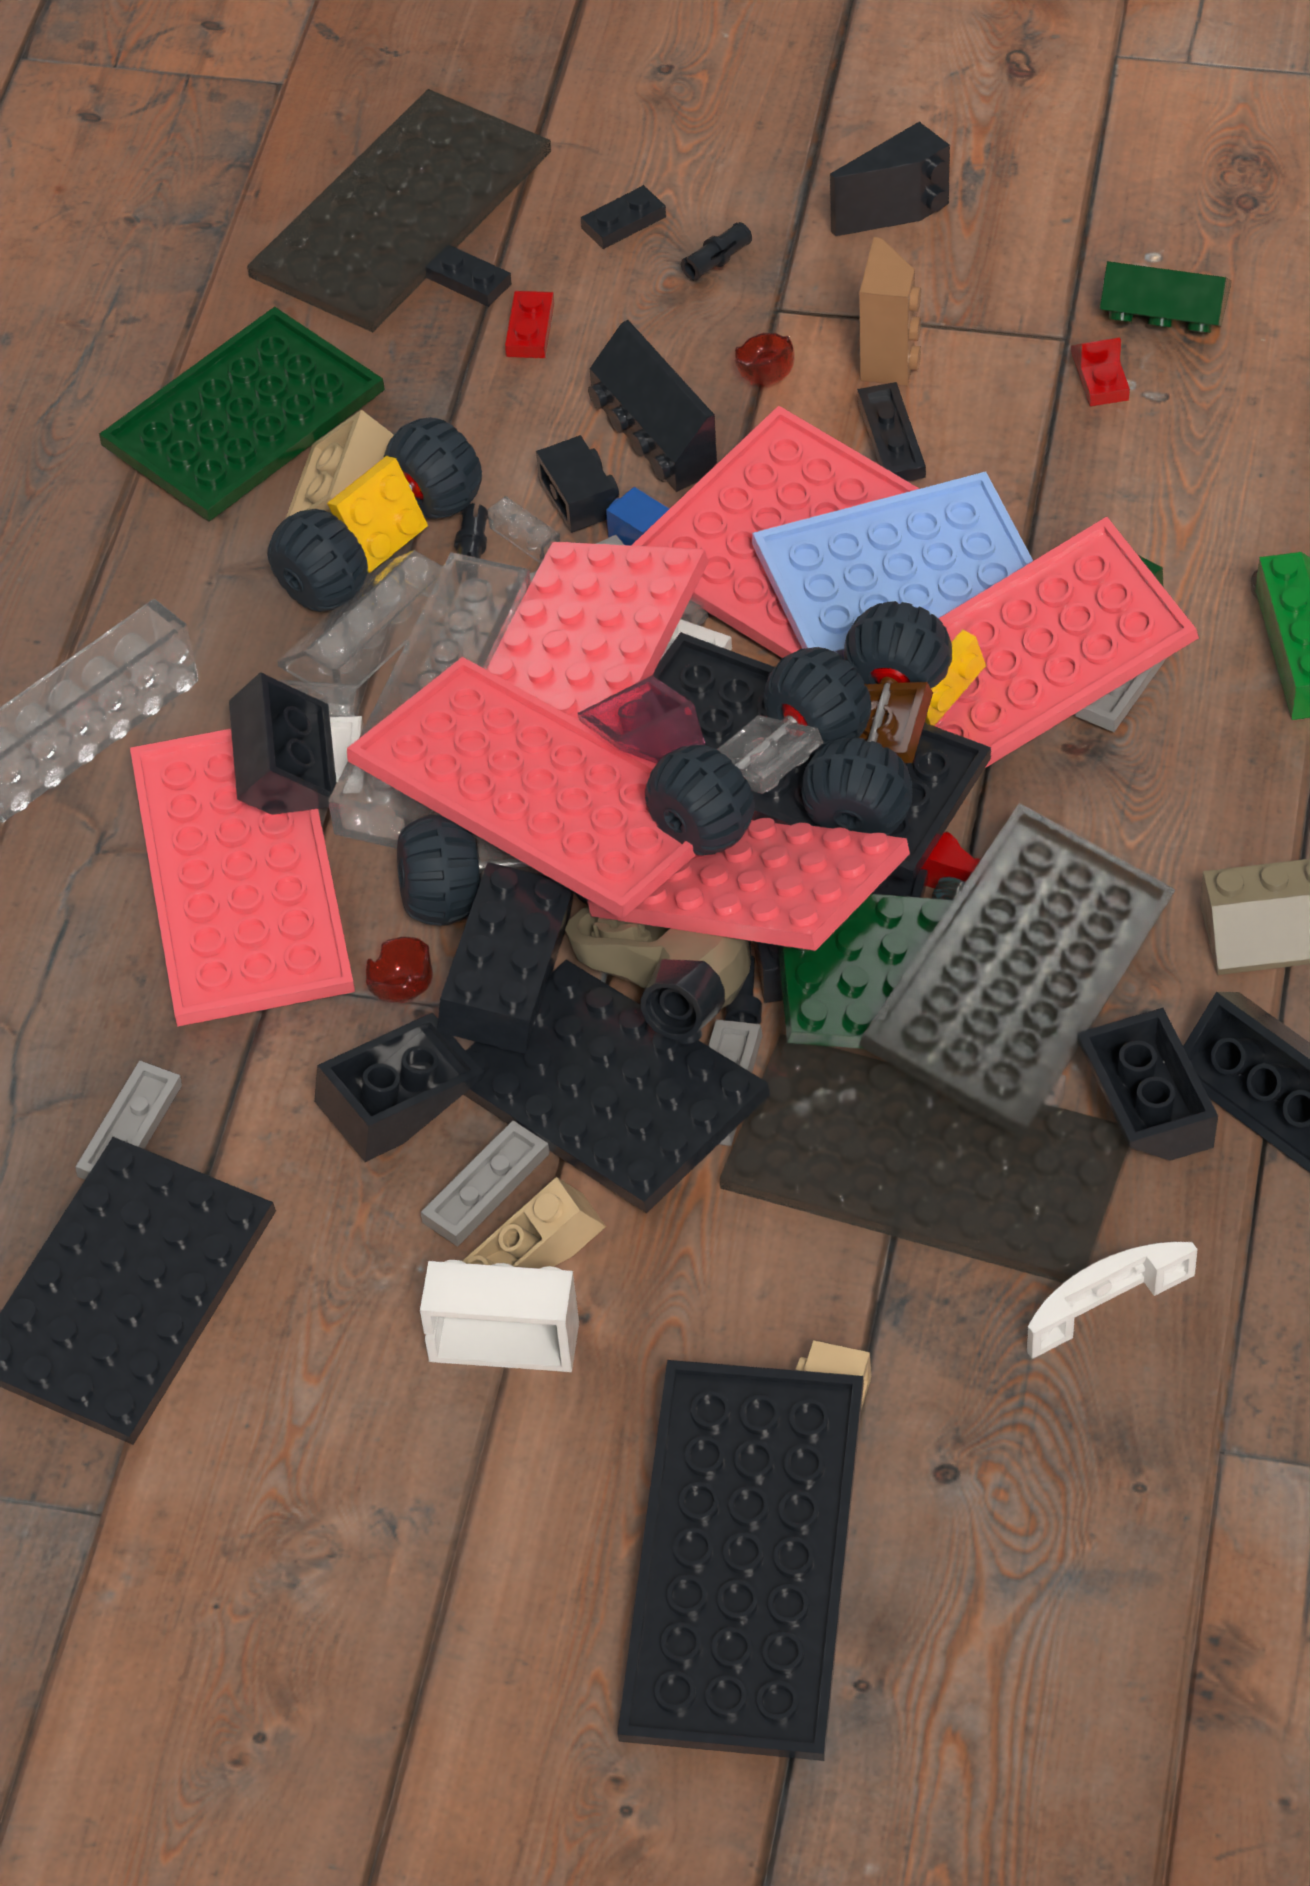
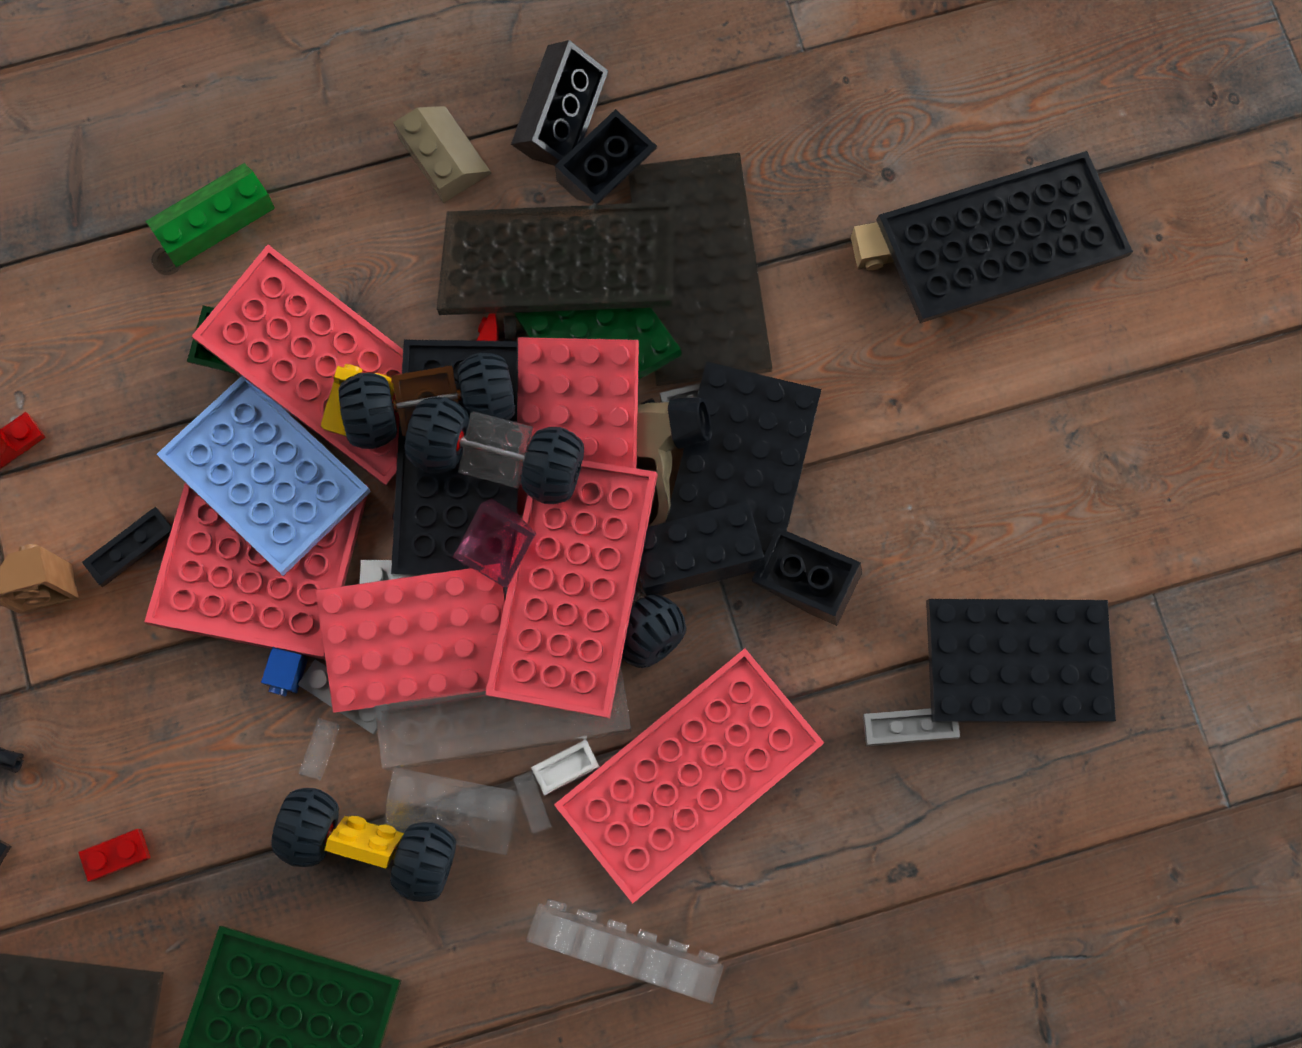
camera: 120 degrees left, 25 degrees up
(281, 747) = (596, 789): black slope -> none
(339, 461) = (330, 902): tan slope -> none
(401, 970) = (724, 623): clear red hair -> none
(468, 275) = (80, 929): black plate -> none
(471, 538) = (347, 778): black pin -> none
(484, 1183) = (842, 495): light grey plate -> none
(500, 1315) = (935, 428): white piece -> none
(542, 1231) = (870, 447): tan slope -> none
(576, 482) = (267, 728): black brick -> none
(654, 408) = (177, 710): black slope -> none
(765, 358) = (91, 662): clear red hair -> none
(1155, 1264) = (776, 153): white slope -> none

